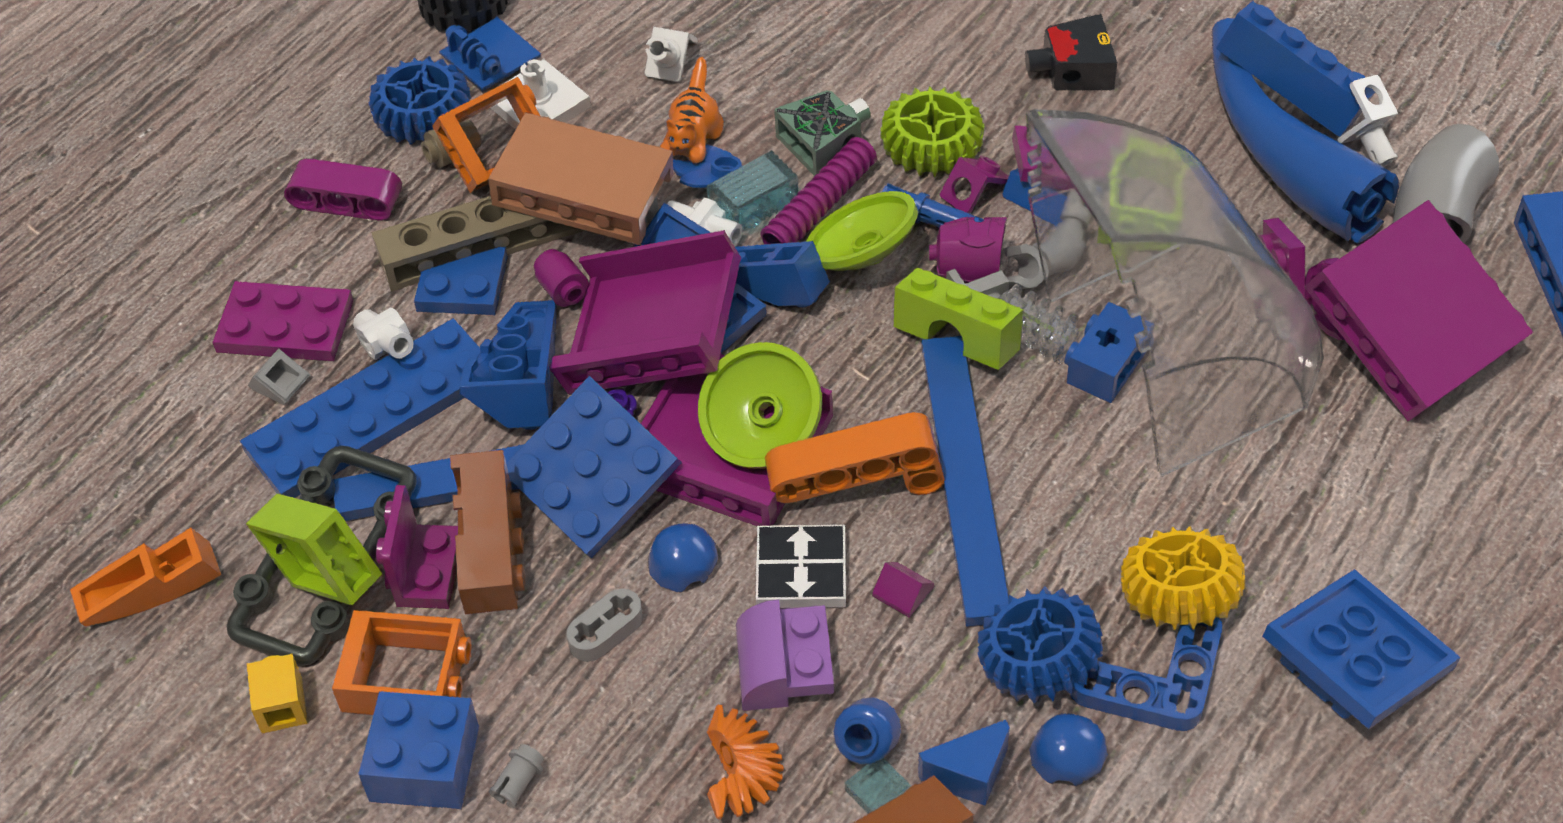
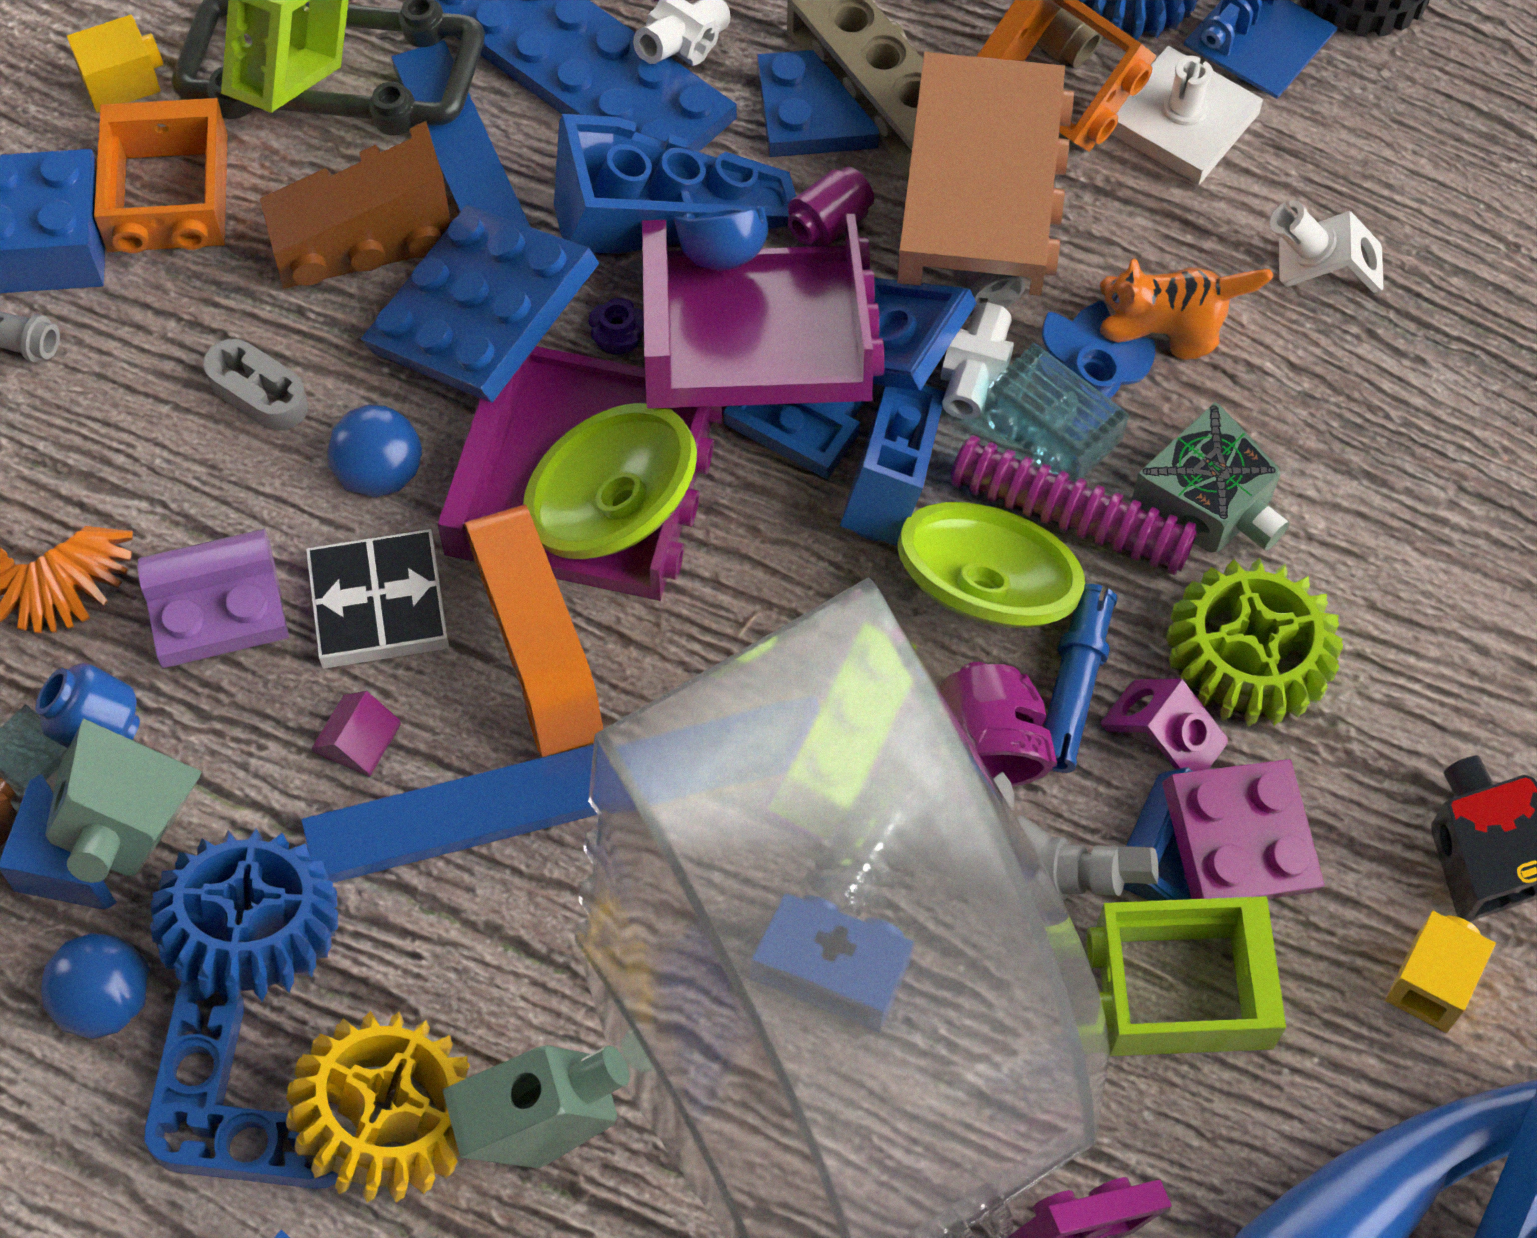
camera: 75 degrees right, 10 degrees up
(416, 557) = (318, 125): magenta bracket -> none
(578, 324) = (723, 237): none -> blue hair
(952, 705) = (114, 802): none -> sand green torso
(1148, 94) = (1441, 970): none -> yellow brick
(1196, 498) = (536, 1105): none -> sand green torso

